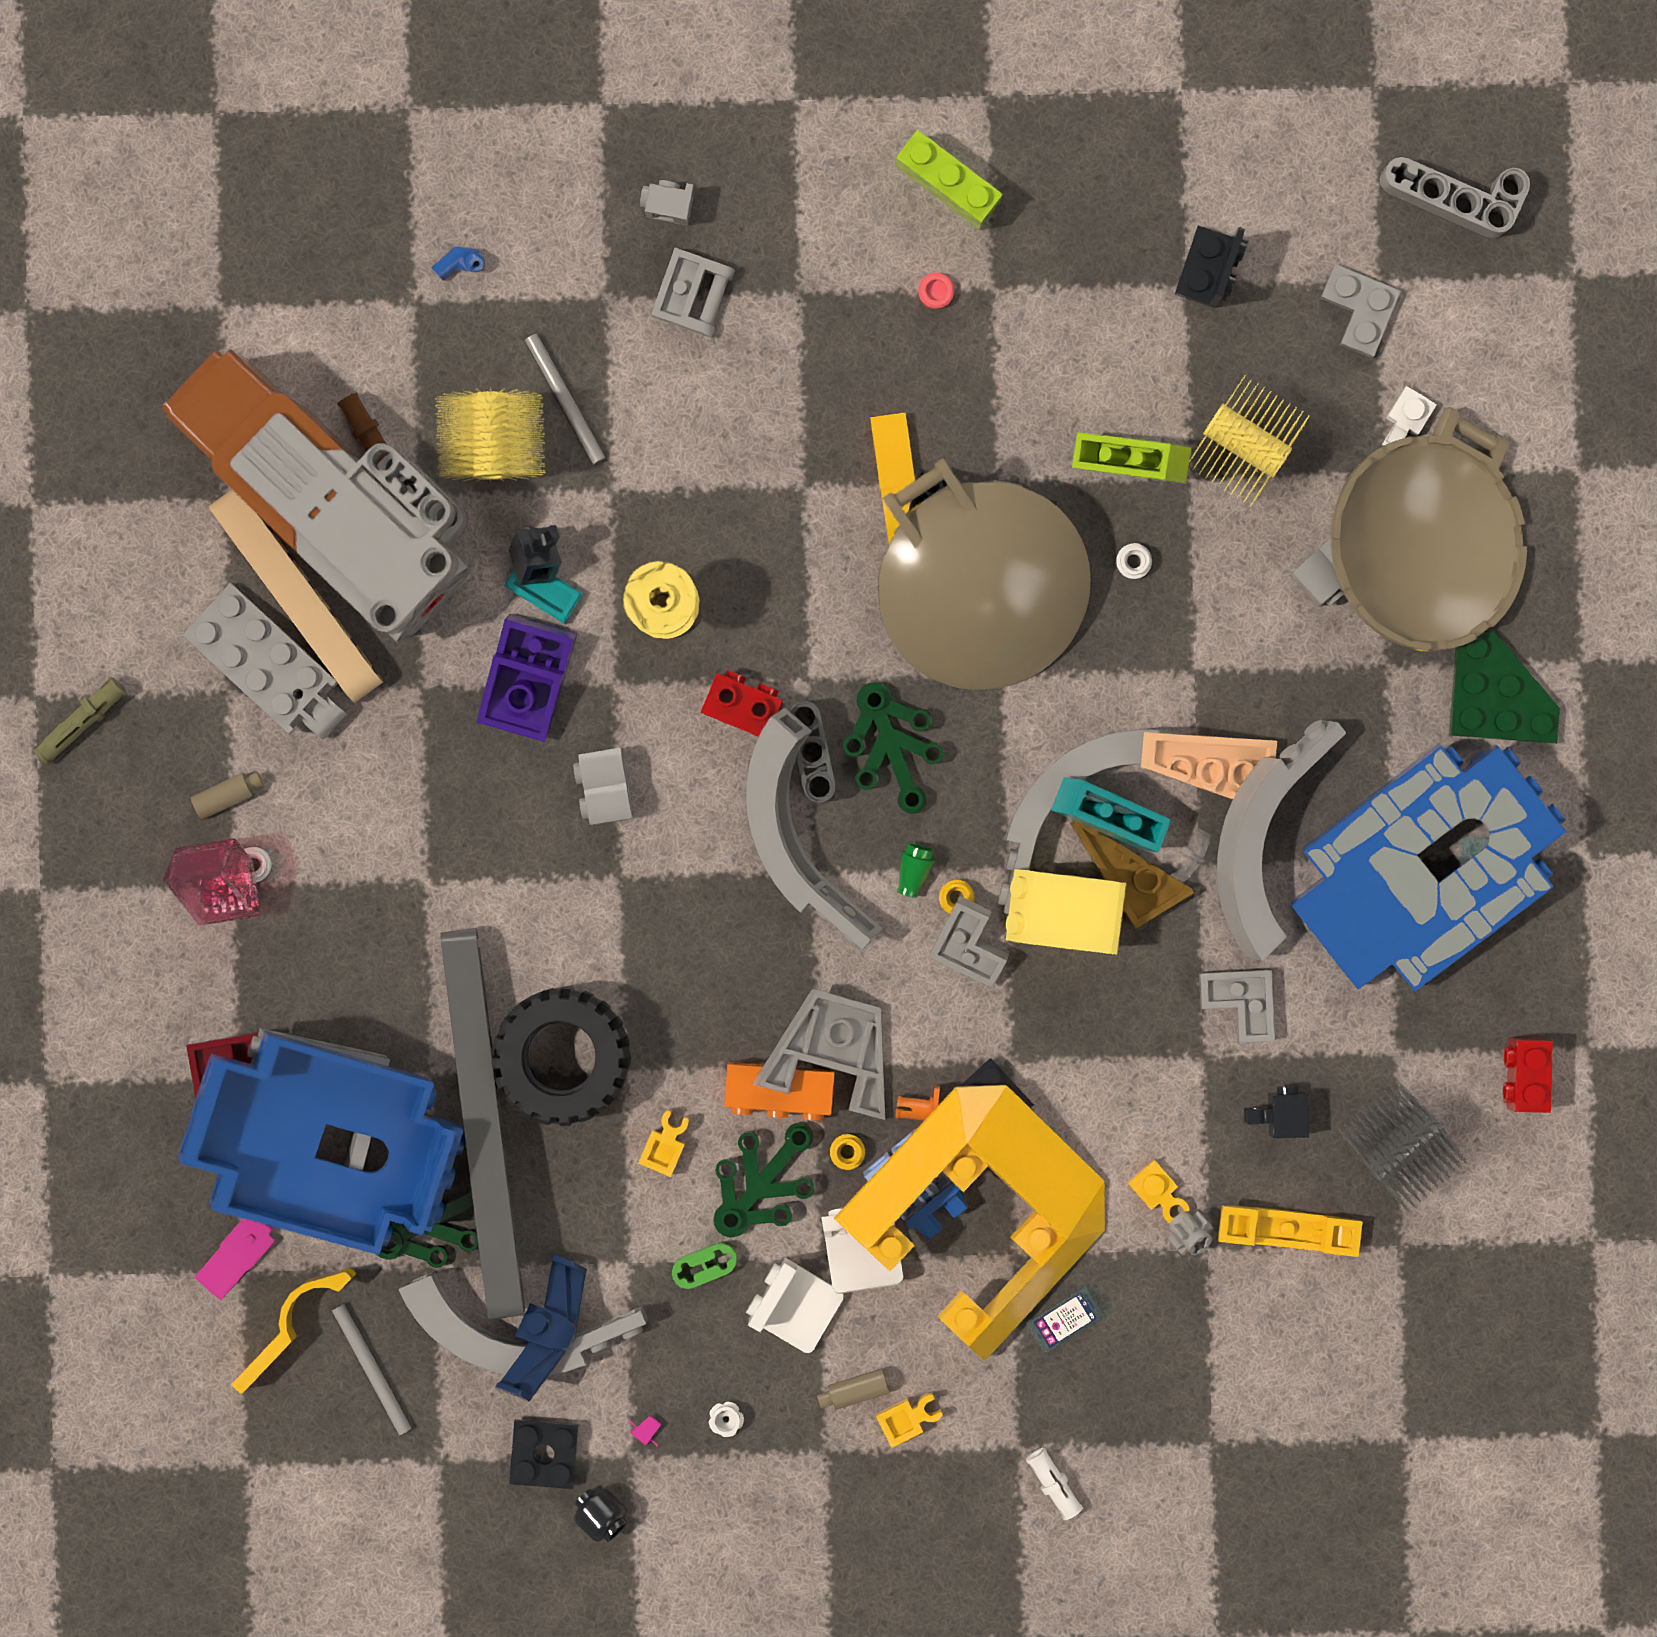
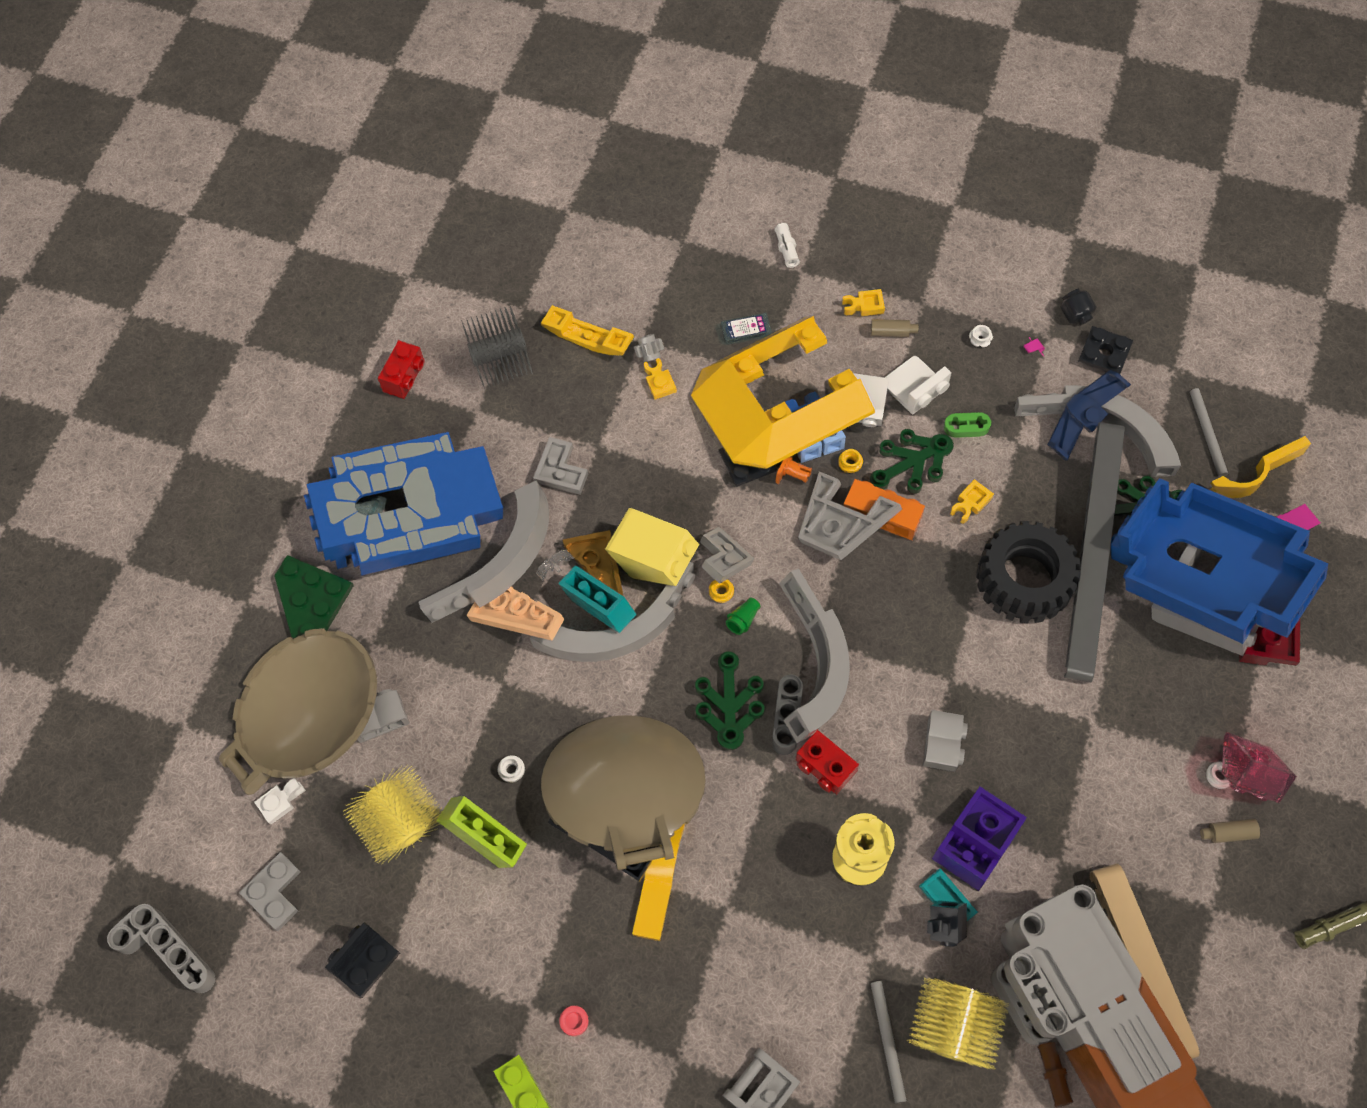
camera: 155 degrees left, 25 degrees down
(266, 663) = (1179, 917): light grey hinge -> none
(1285, 1113) = (561, 394): black brick -> none

